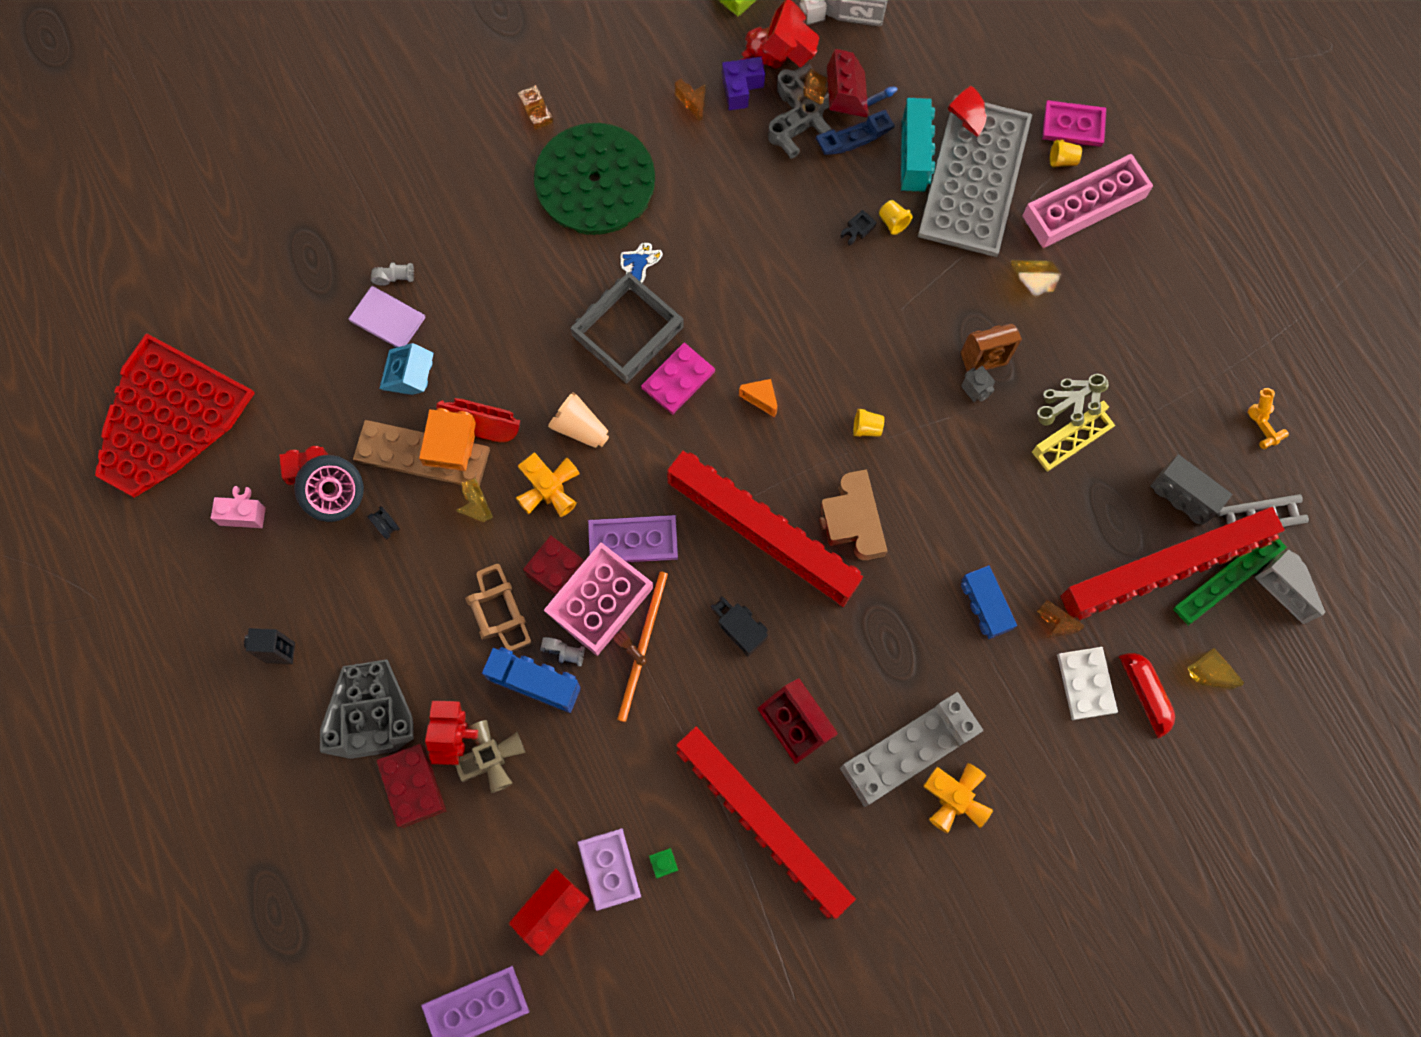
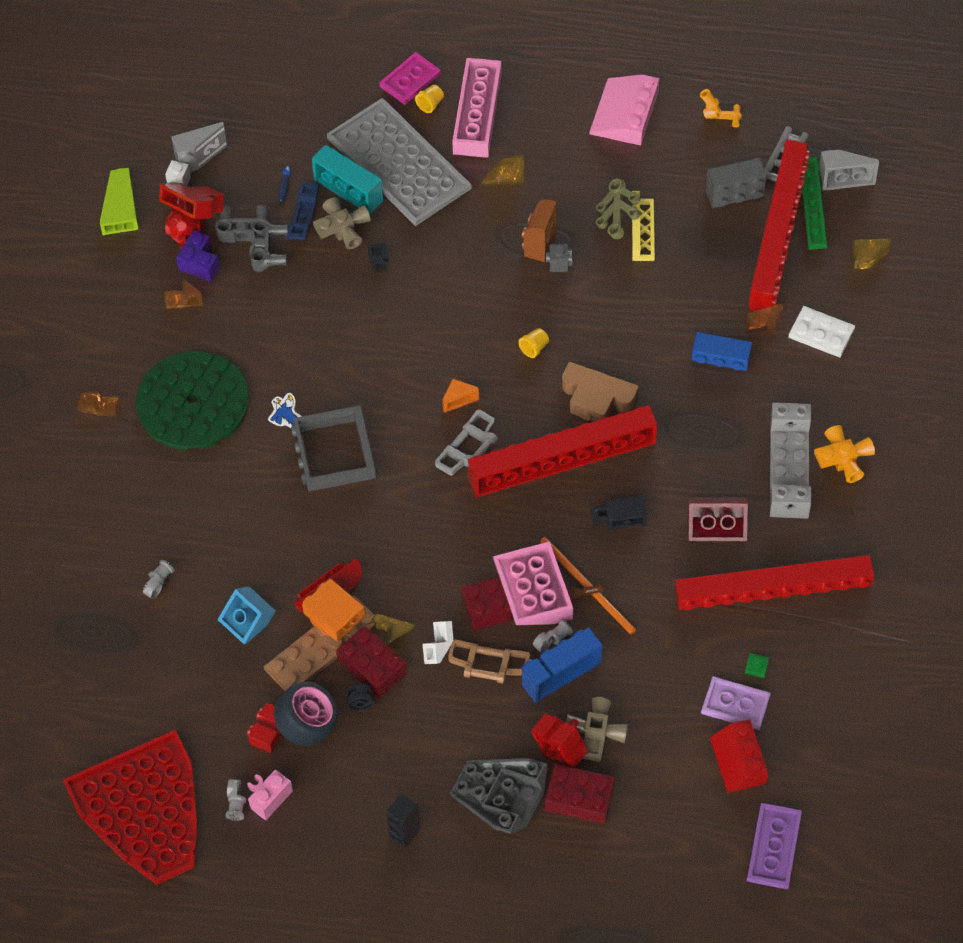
camera: 50 degrees left, 15 degrees down
(223, 480) = (236, 800): none -> light grey connector
(387, 318) = (190, 605): lavender tile -> none
(427, 508) = (371, 661): none -> dark red brick
(481, 556) = (436, 650): none -> white slope
(547, 485) = (417, 571): light orange brick -> none
(579, 423) = (384, 521): light nougat cone -> none
(636, 538) = (506, 534): medium lavender plate -> none
(678, 378) = (400, 441): dark pink plate -> none
(716, 455) = (485, 437): none -> light grey bar
(814, 86) = (246, 212): clear orange slope -> none
(846, 84) = (261, 192): dark red slope -> none
(867, 171) = (341, 223): none -> dark tan brick
(895, 217) = (390, 228): yellow piece -> none
(970, 109) = (347, 130): brick -> none
(1150, 692) = (855, 299): red brick -> none
(1198, 333) = (626, 108): none -> bright pink slope

